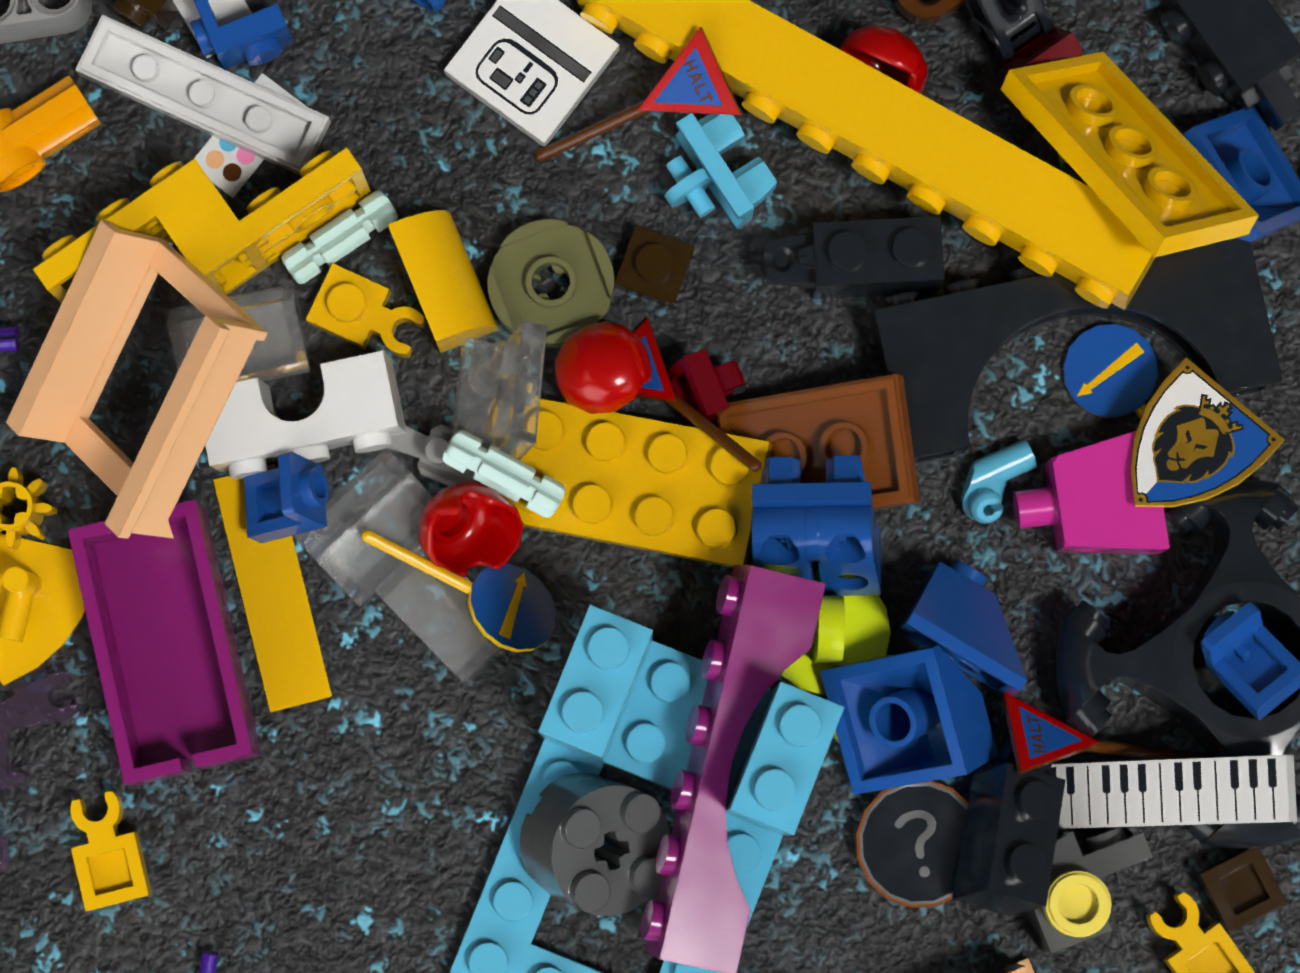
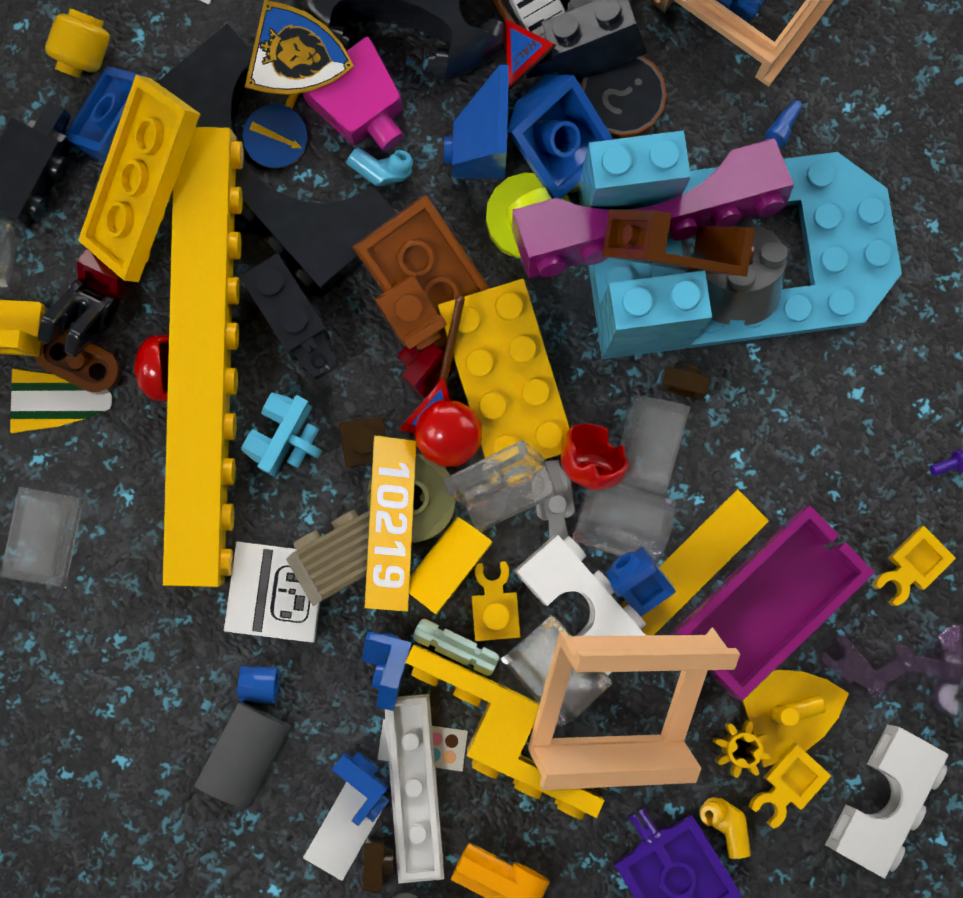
camera: 120 degrees left, 0 degrees up
(349, 129) = (390, 656): none -> blue bracket
(502, 702) = (684, 381): none -> dark brown plate
(504, 473) = (550, 452): light aqua axle -> none
(505, 603) = (625, 411): blue piece -> none
(525, 155) = (334, 560): none -> dark tan brick
(530, 234) = (390, 524): none -> yellow sticker
(687, 700) = (643, 238): none -> reddish brown panel
(689, 86) = (241, 476): piece -> none
(775, 401) = (411, 314): none -> dark orange bracket
(820, 523) = (475, 241): blue hips -> none

